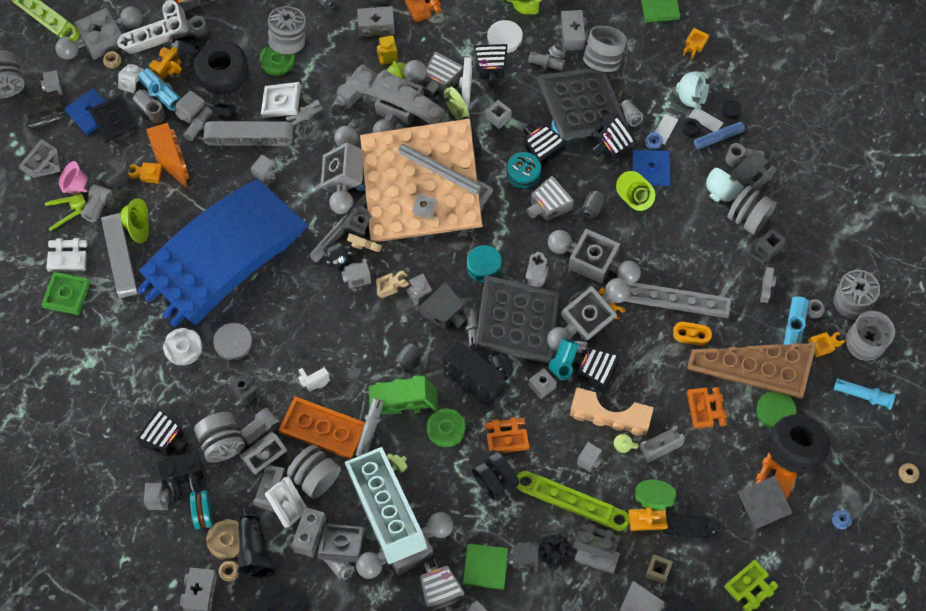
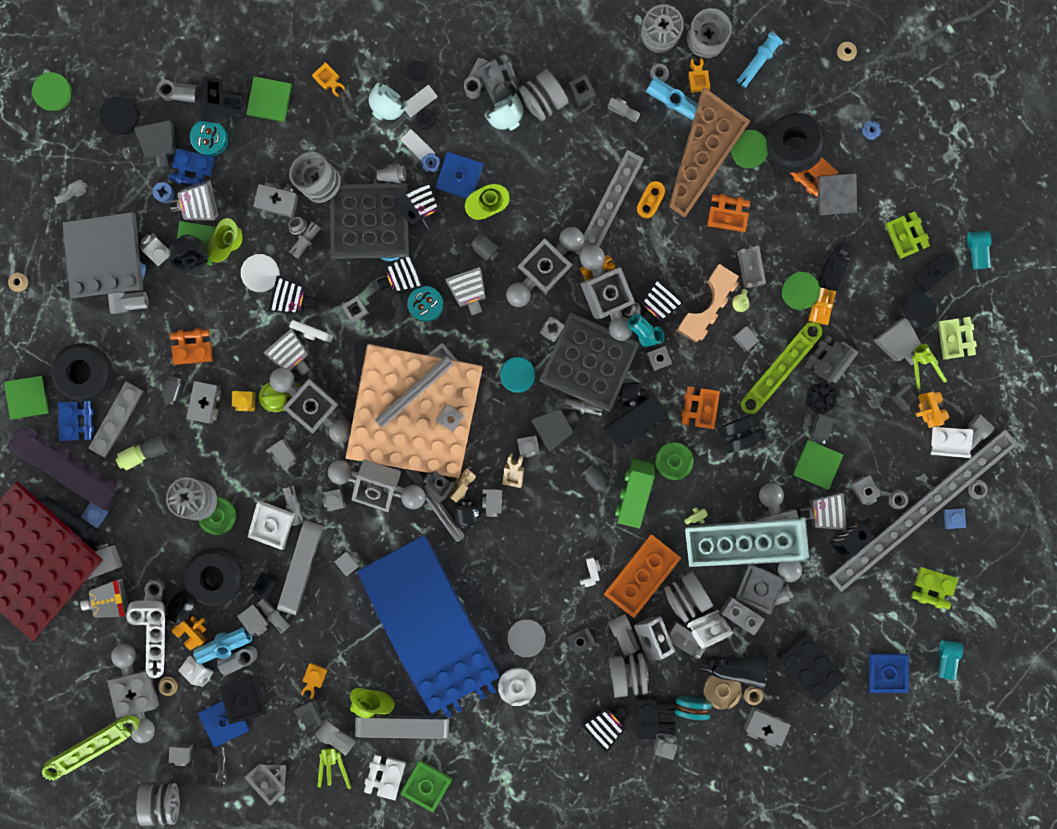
camera: 75 degrees left, 25 degrees up
(73, 179) = (303, 756): bright pink piece -> none
(168, 152) = (297, 656): orange slope -> none
(318, 139) = (334, 499): none -> light grey brick
(369, 426) = (653, 529): light grey pin -> none
(396, 92) = (311, 409): light grey arch -> none
(456, 103) = (333, 349): yellowish green tile -> none
(659, 563) = (876, 312): dark tan plate -> none
(719, 135) = (443, 94): medium blue axle -> none

